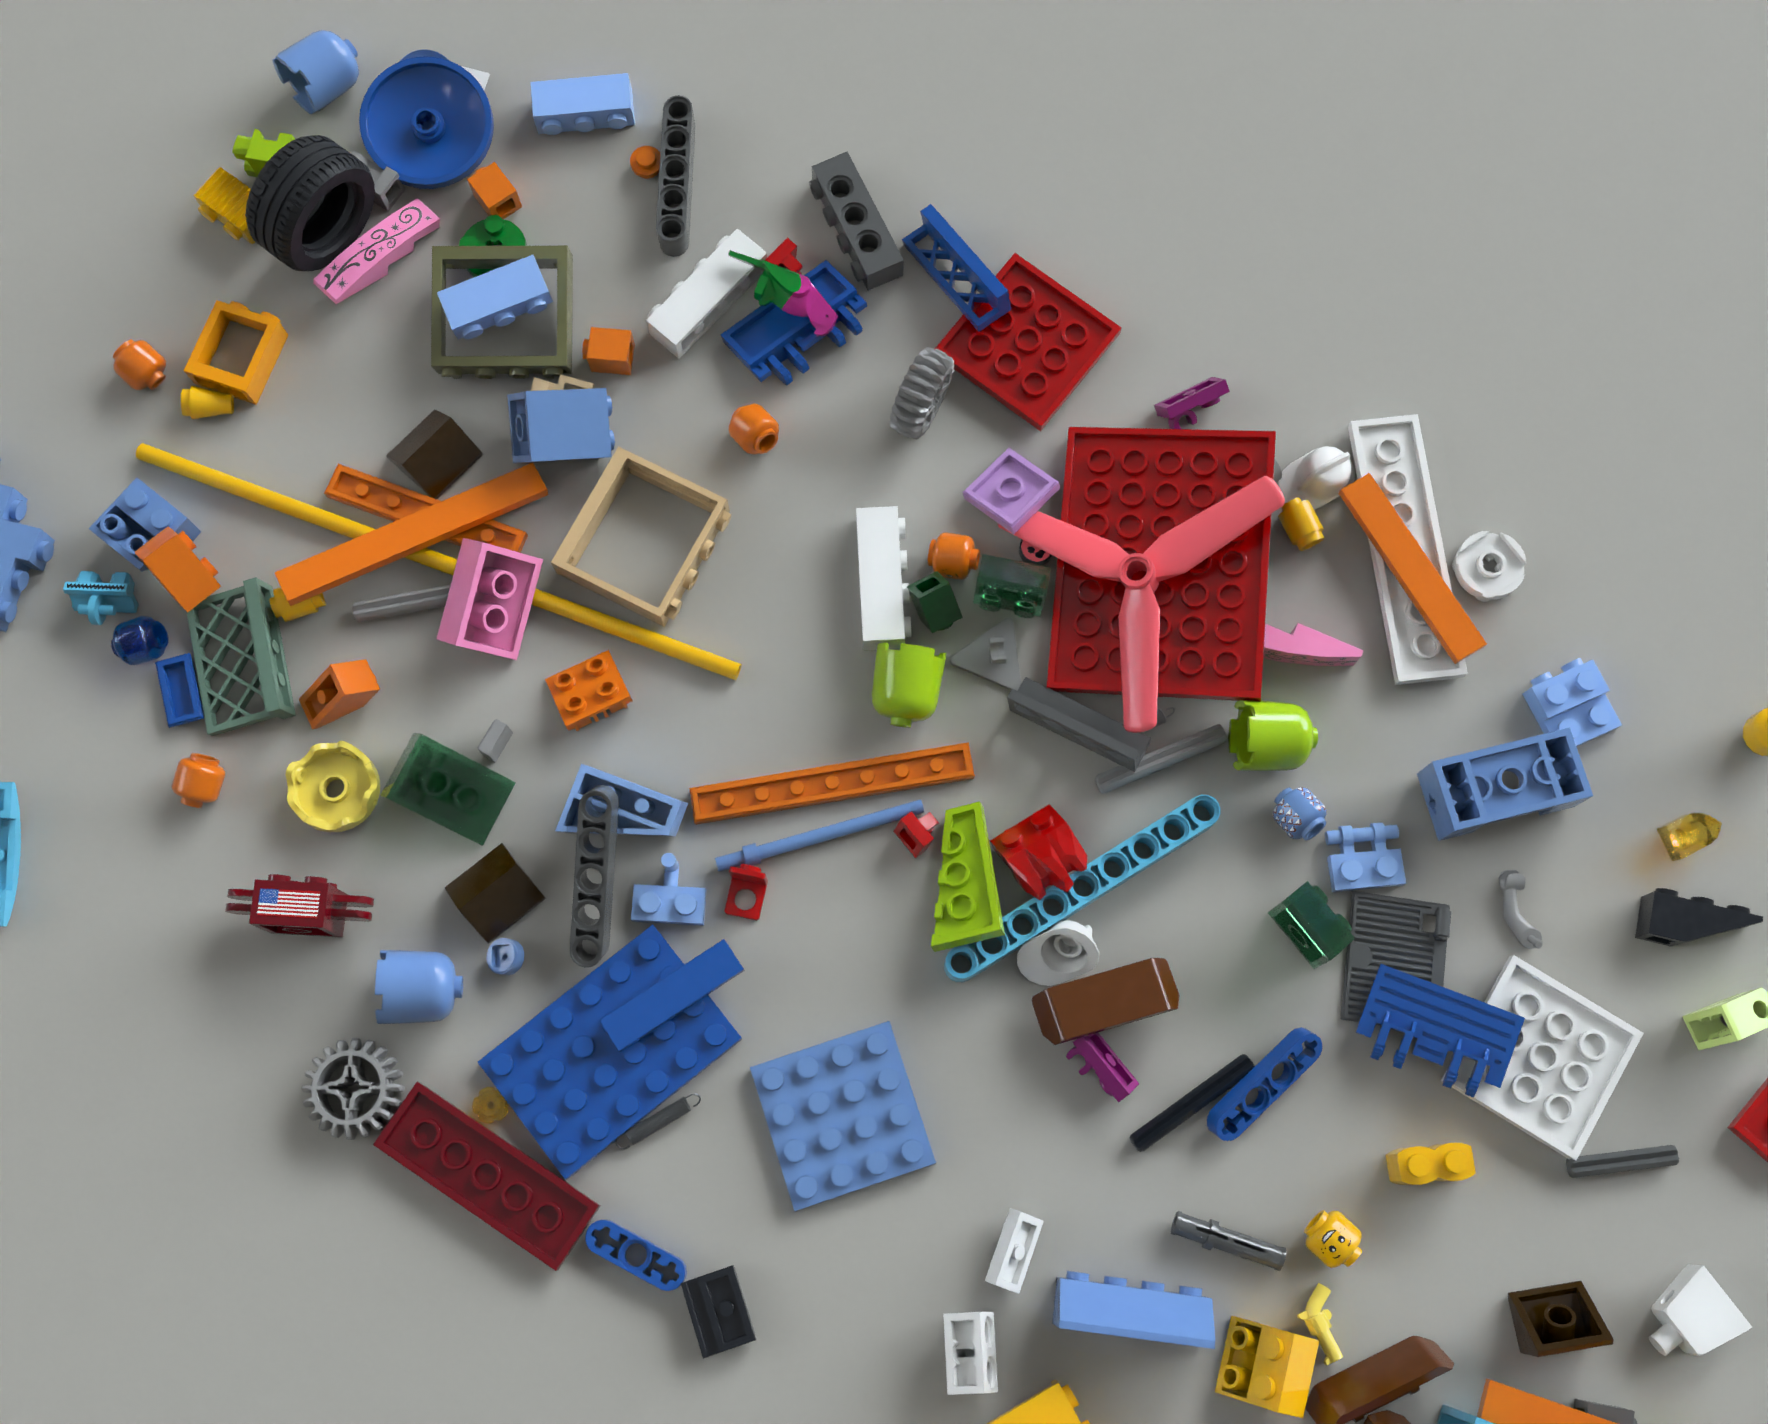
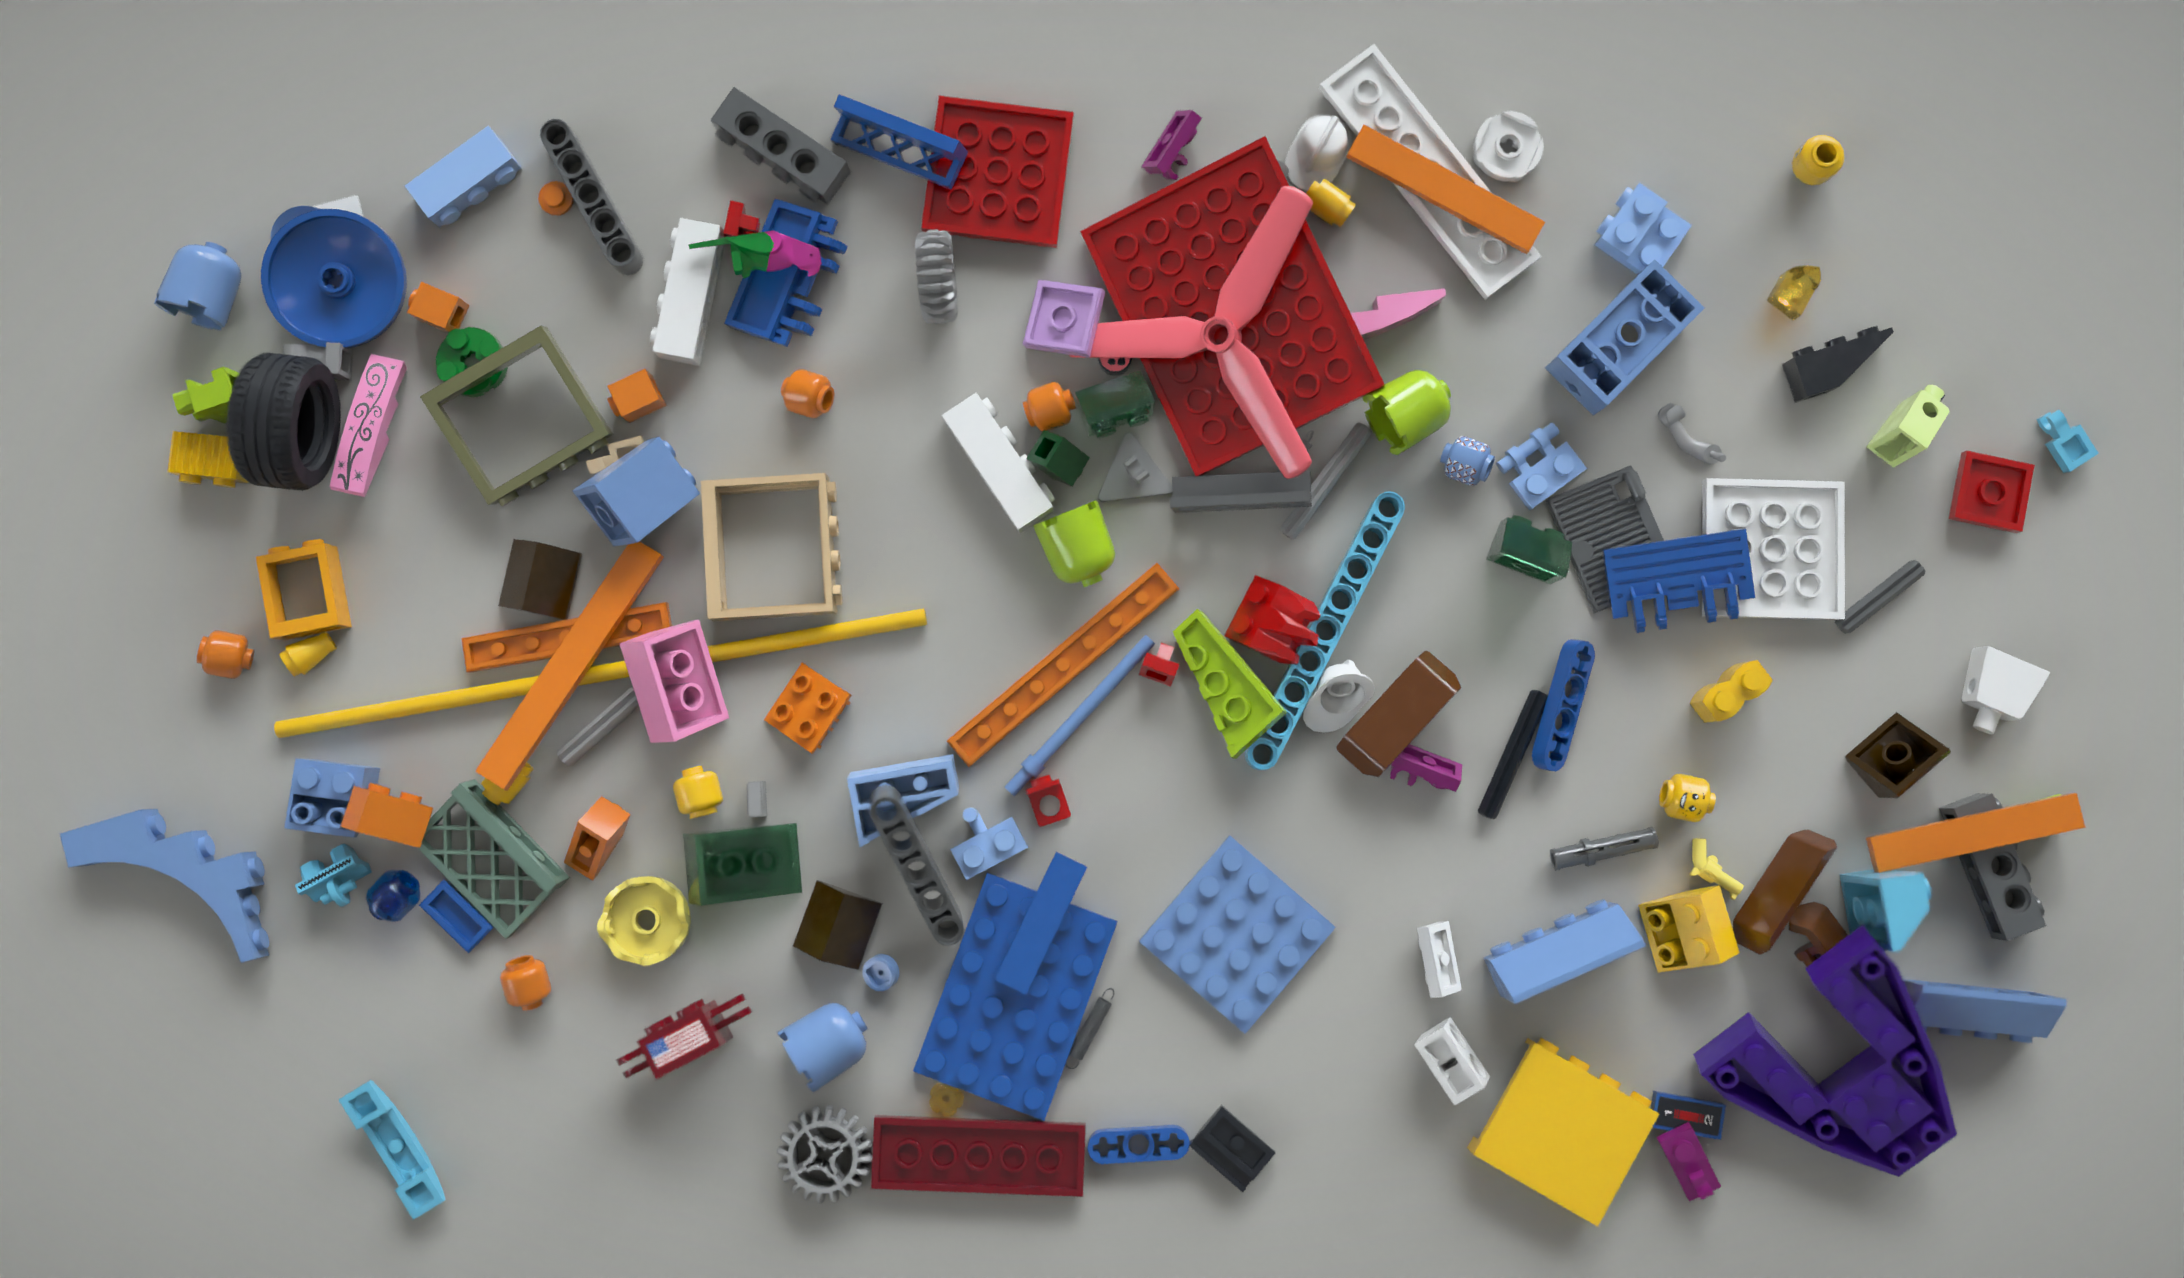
camera: 30 degrees left, 10 degrees up
(448, 704) = (697, 792): none -> yellow head
(495, 298) = (509, 412): light blue brick -> none

